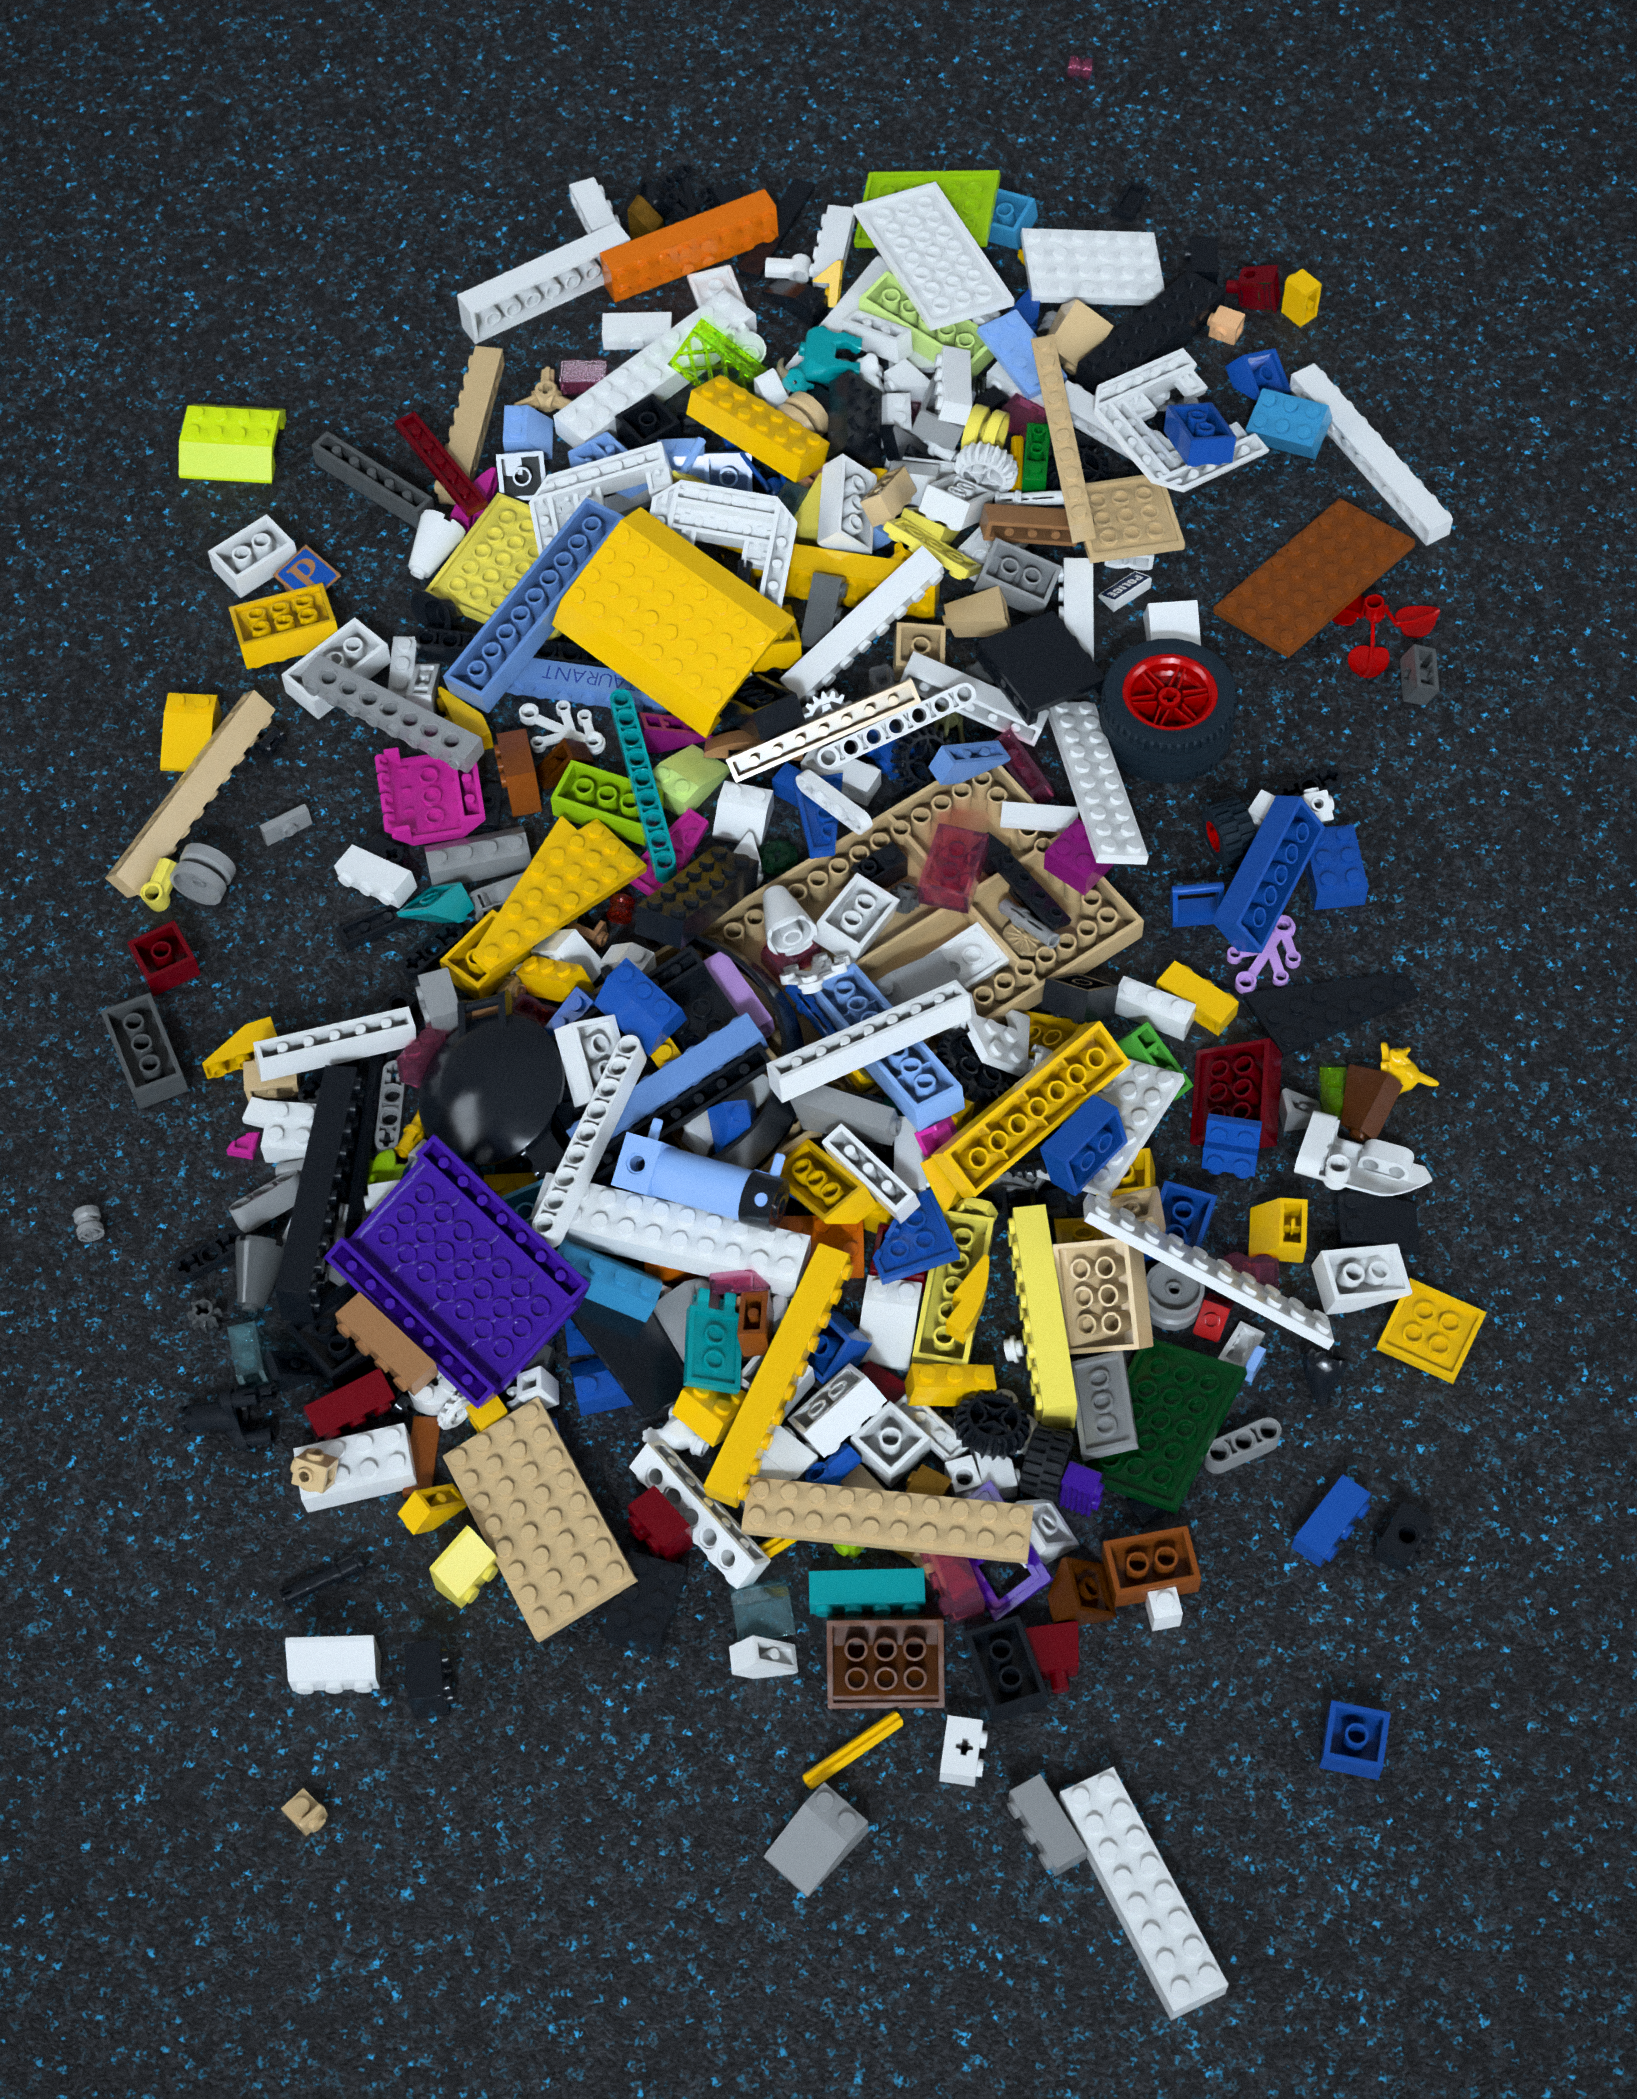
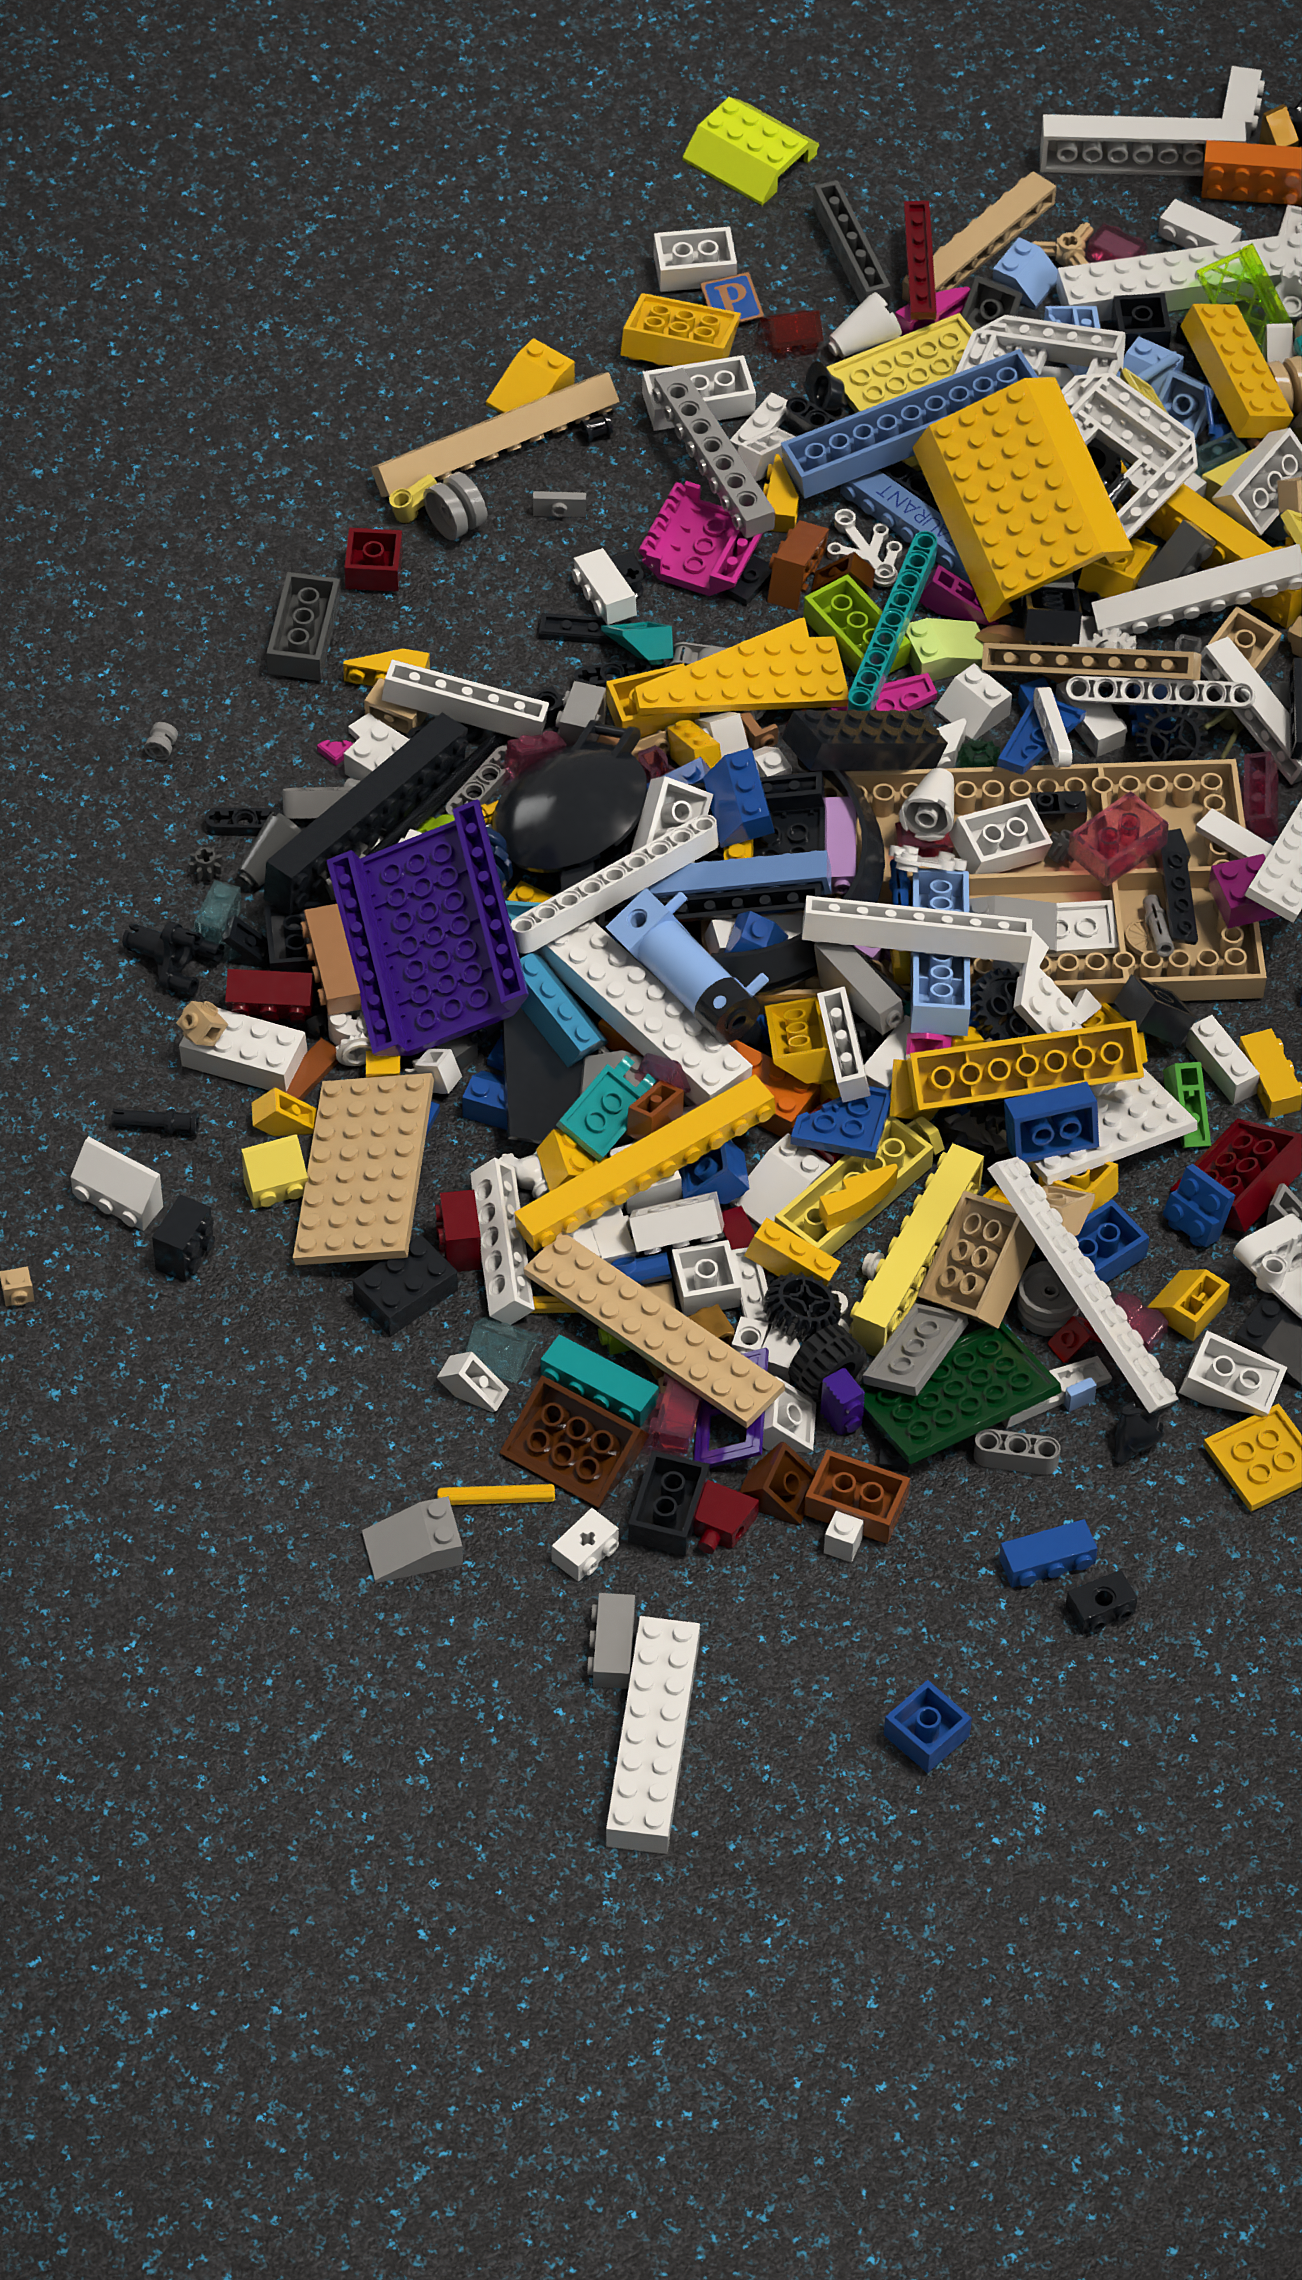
camera: 30 degrees right, 5 degrees down
(373, 574) = (793, 329): none -> clear red slope
(478, 856) = (707, 617): light grey slope -> none
(964, 761) = (1204, 756): medium blue slope -> none

